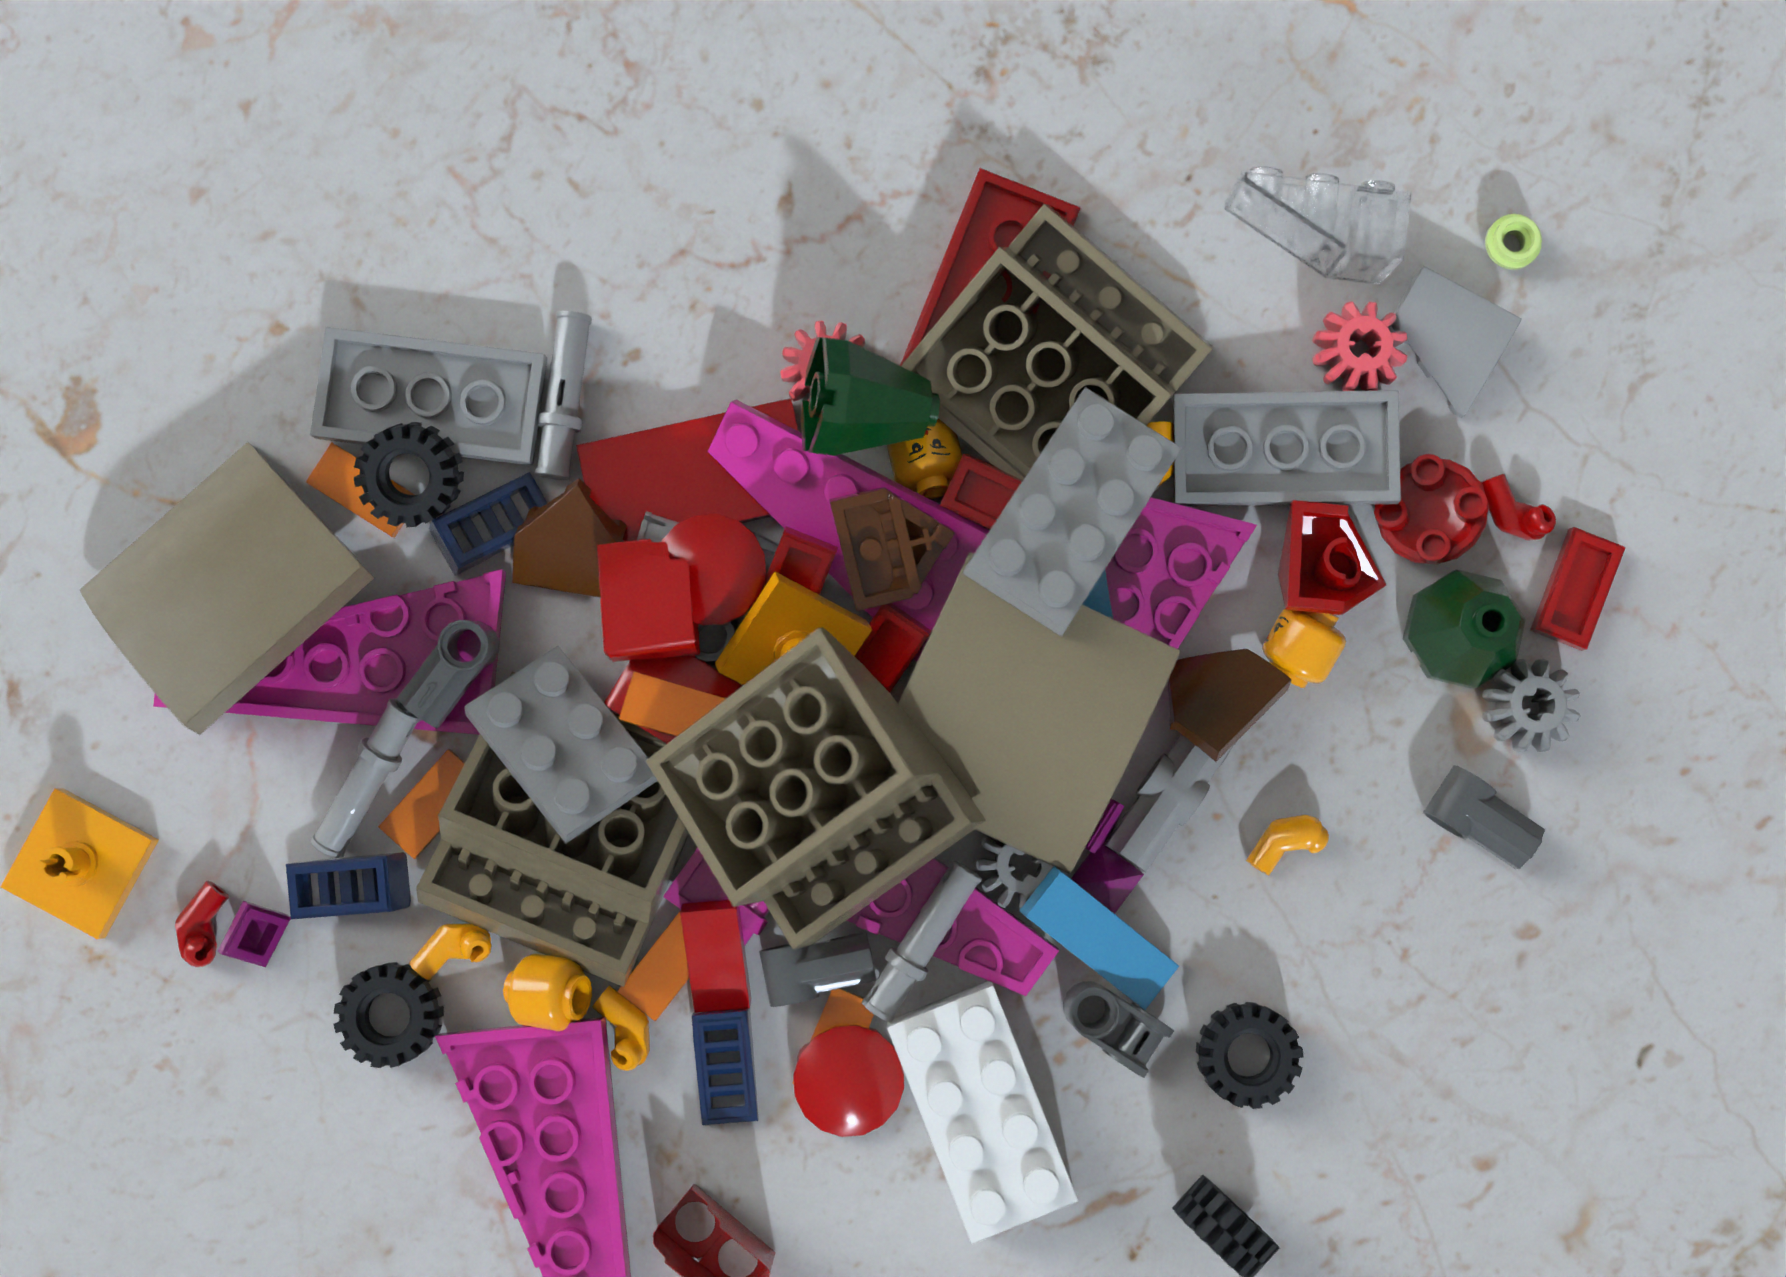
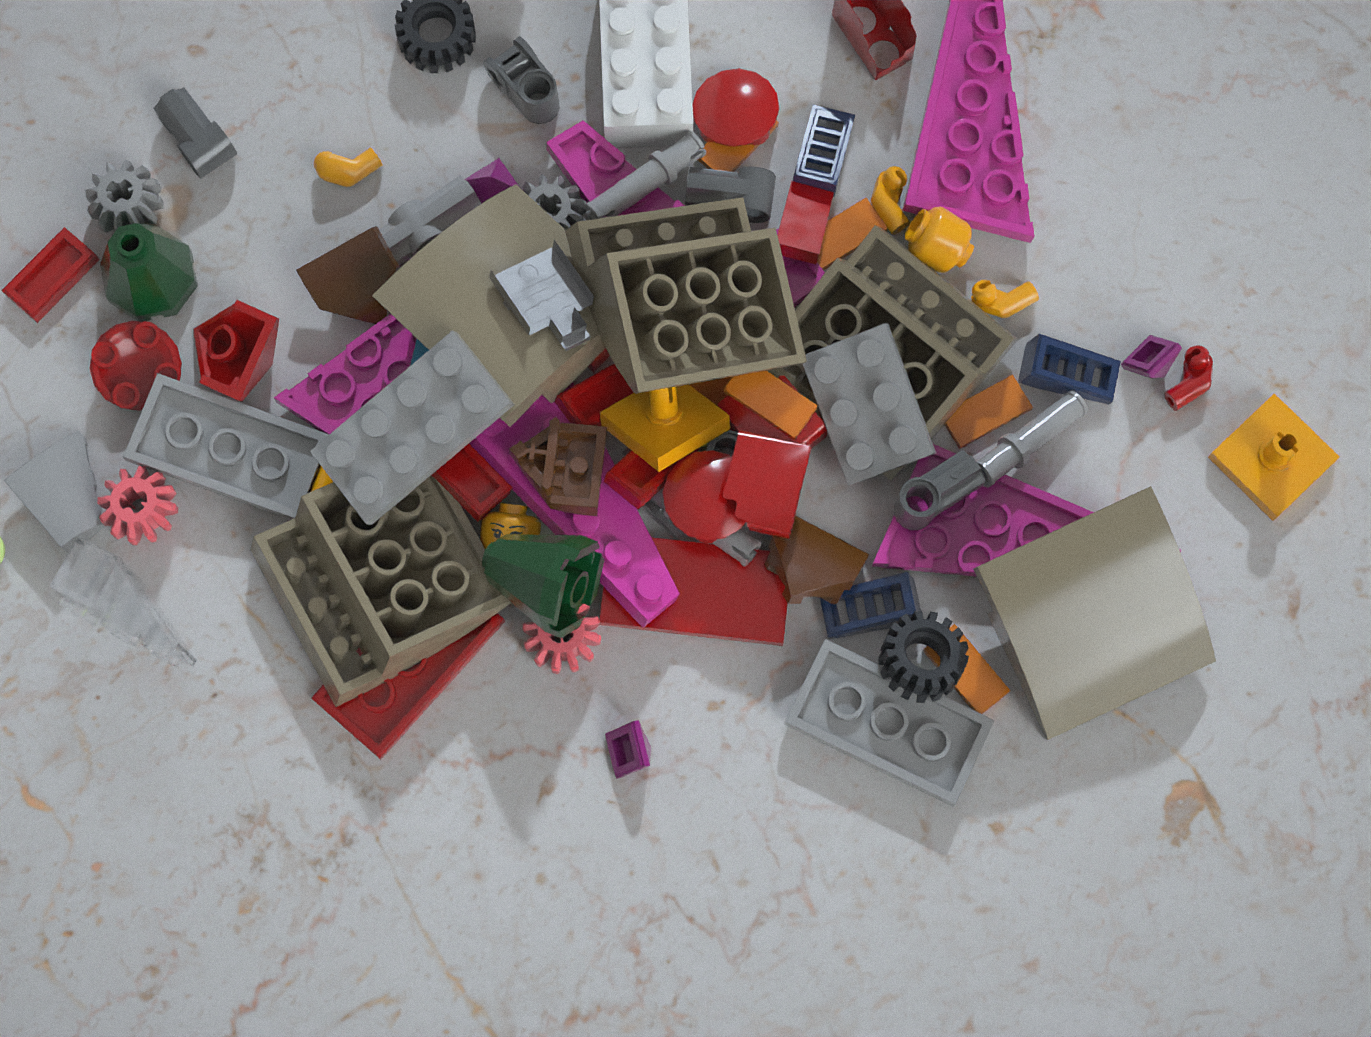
camera: 165 degrees left, 10 degrees down
(355, 1021) = (1072, 241): black tyre -> none
(563, 395) = (788, 670): light grey pin -> none
(707, 267) = (628, 749): none -> magenta slope
(976, 723) = (546, 294): none -> piece
(1099, 938) = (513, 139): dark azure tile -> none
(1304, 645) = (278, 293): light orange head -> none
(1514, 516) = (74, 342): red arm -> none

